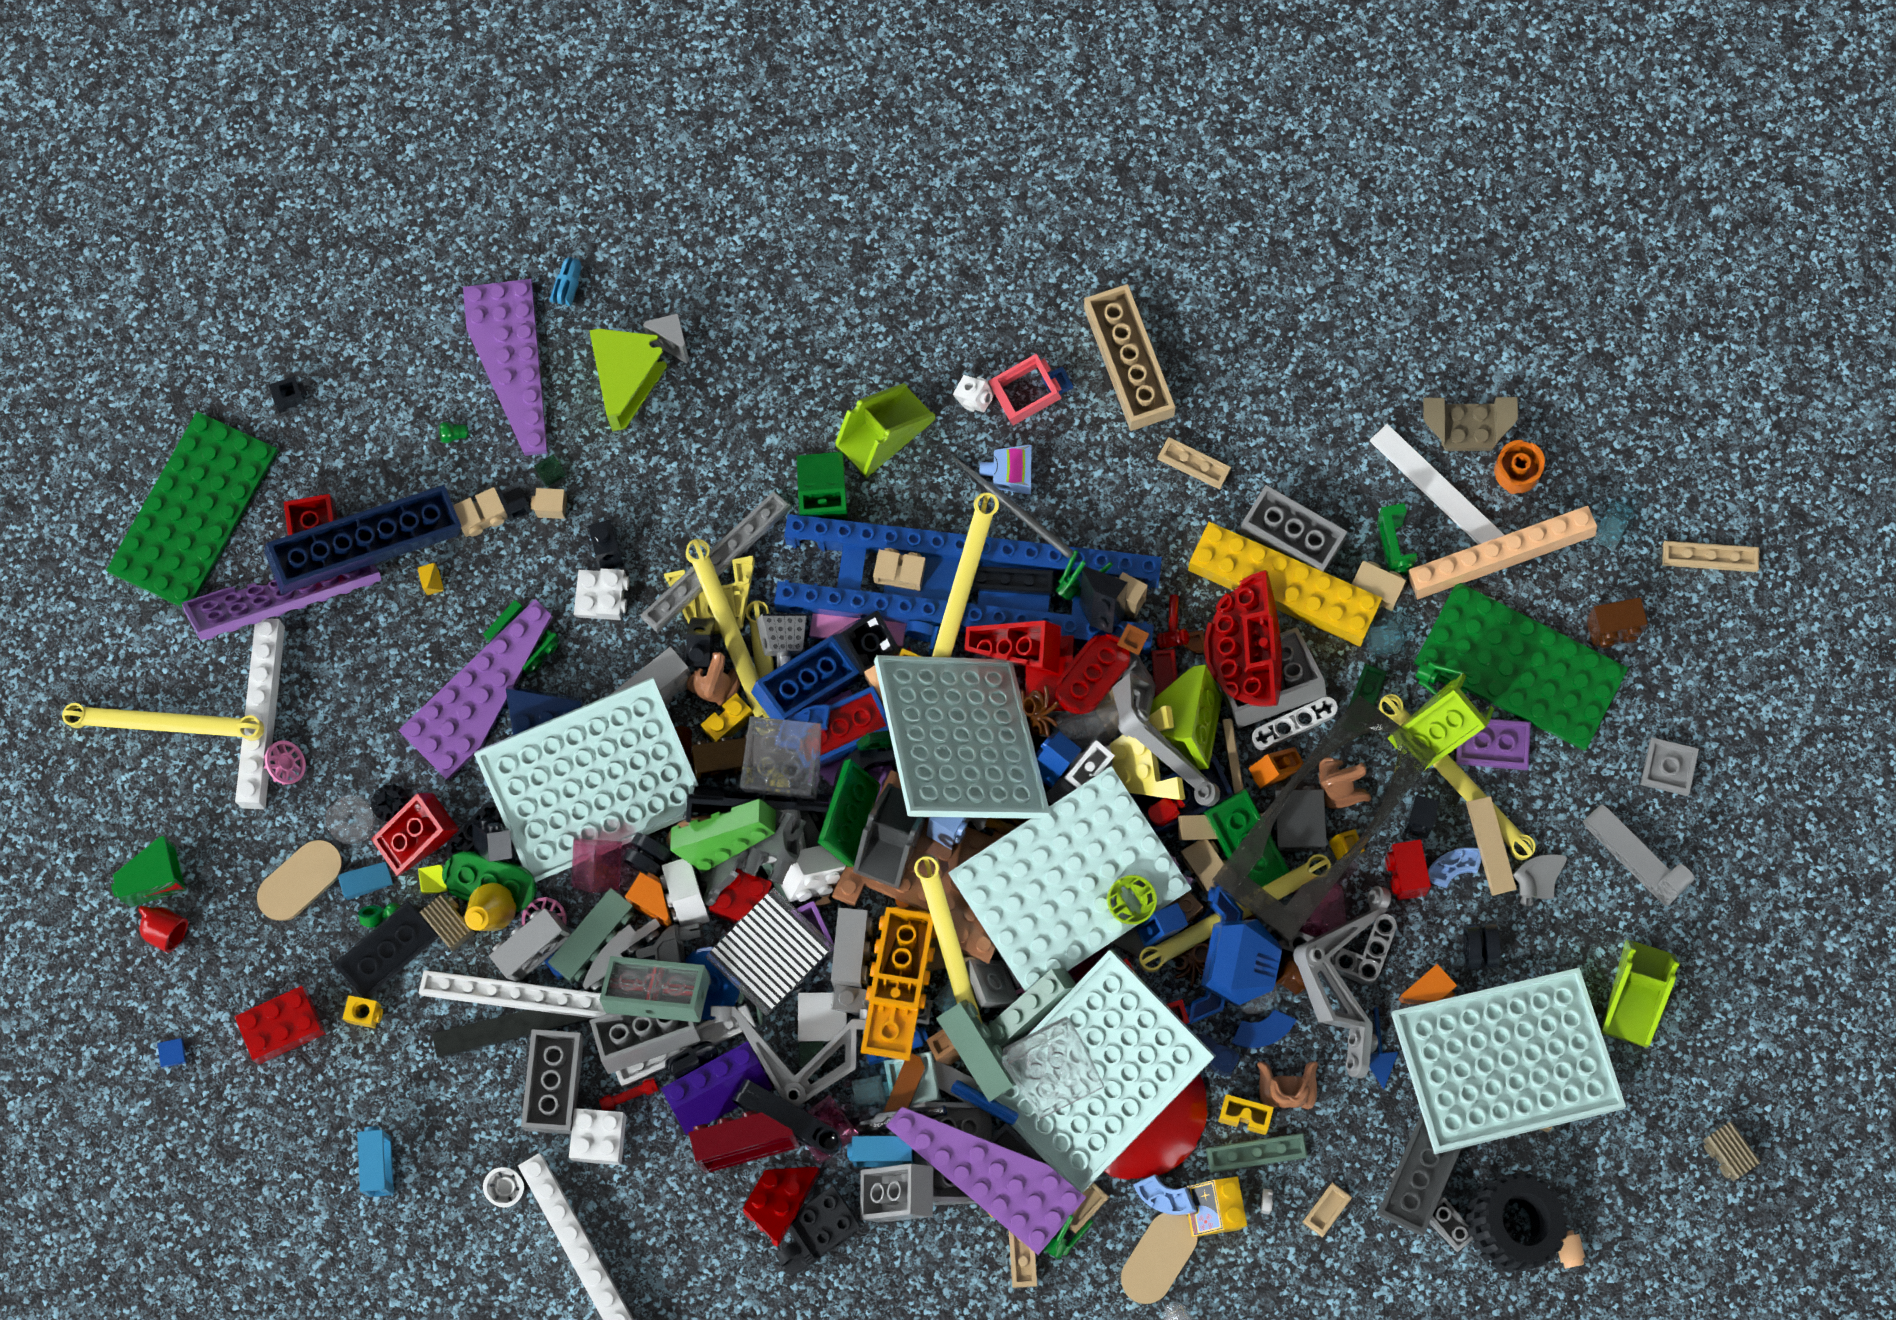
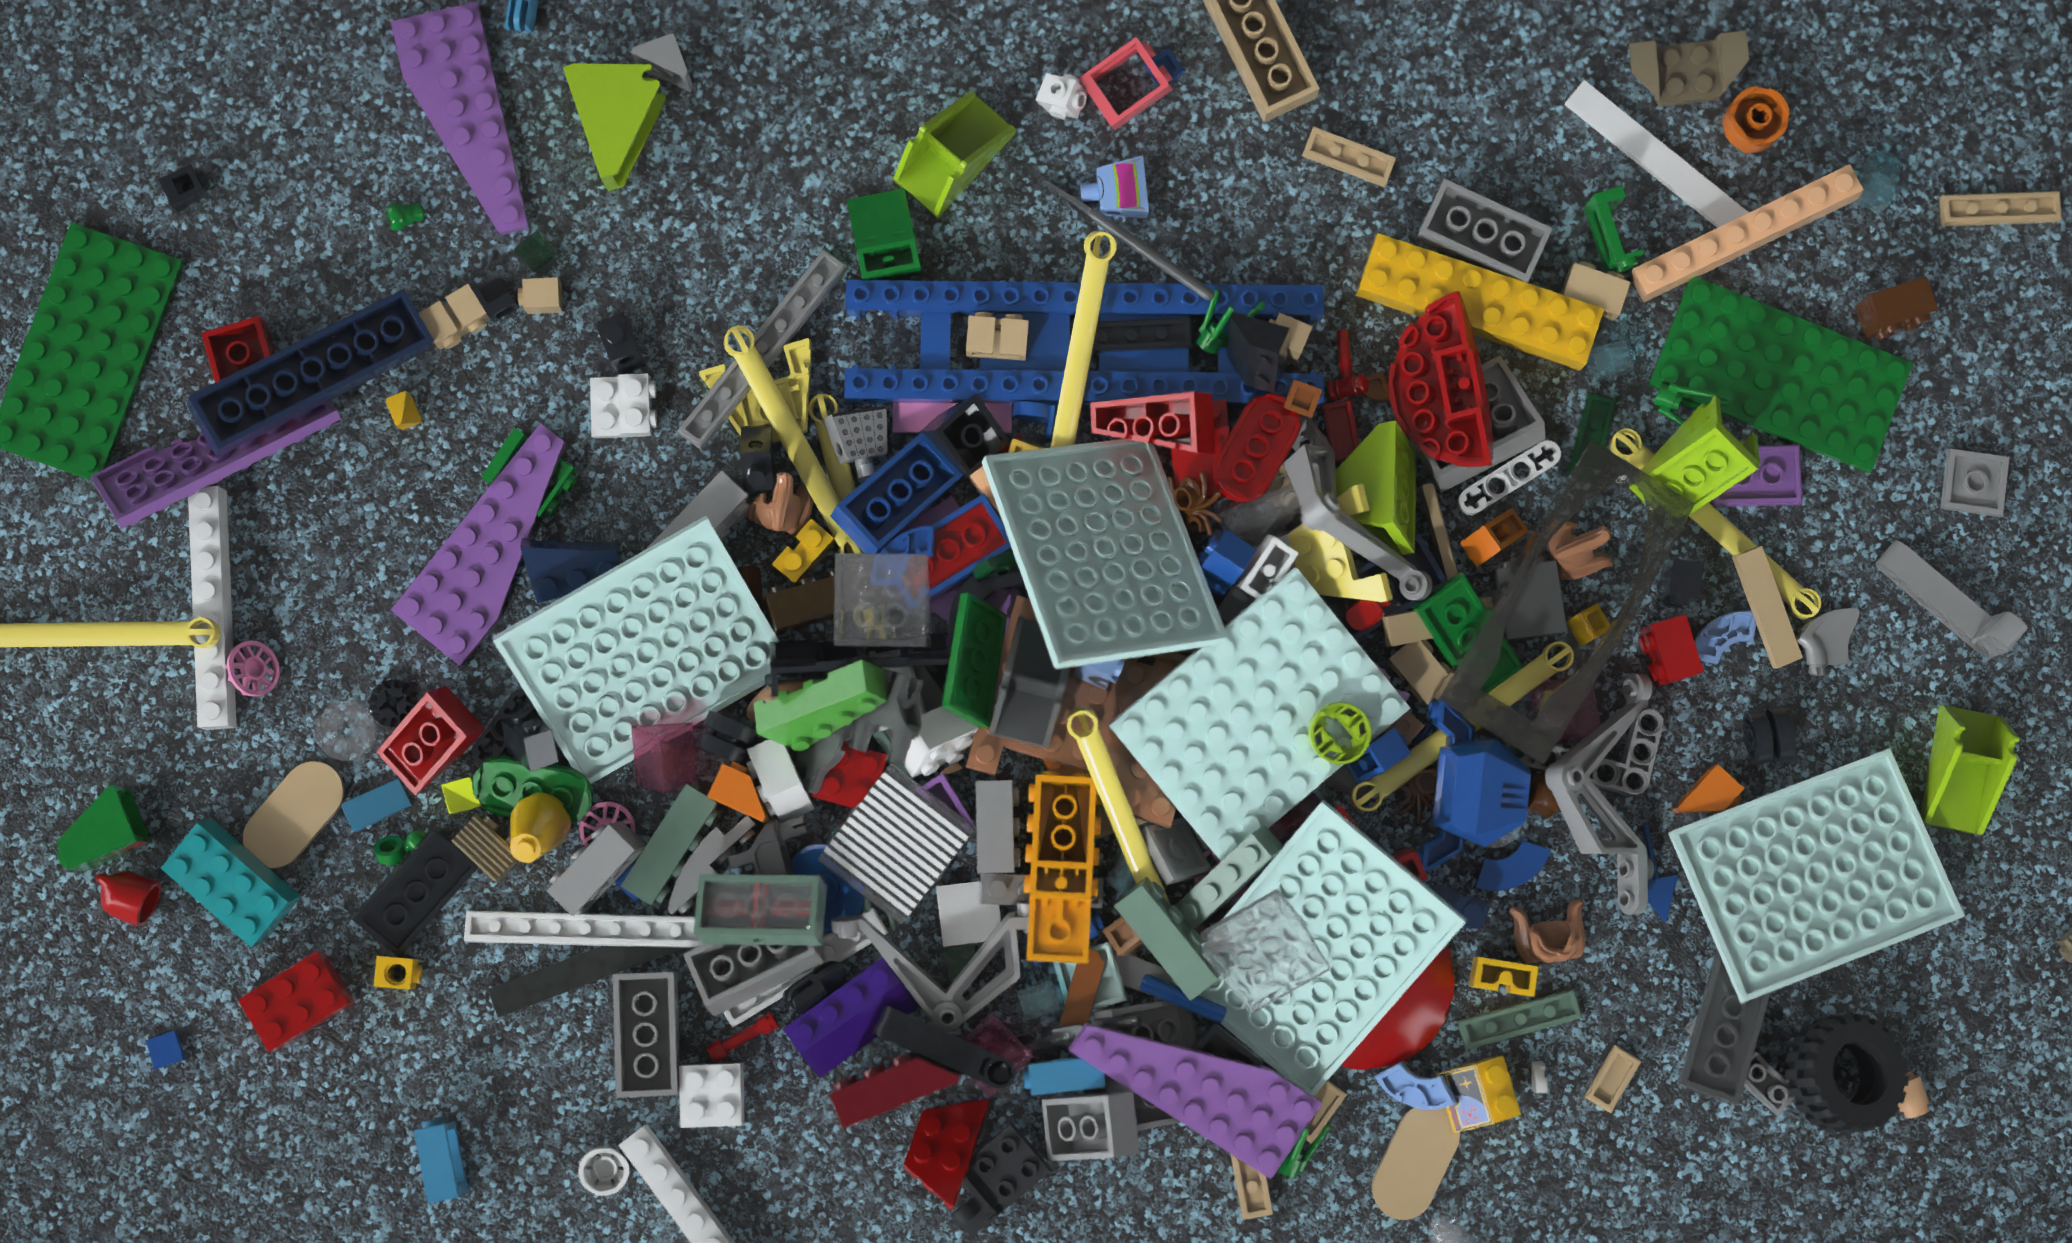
camera: 15 degrees left, 10 degrees up
(243, 926) = (230, 882): none -> teal piece

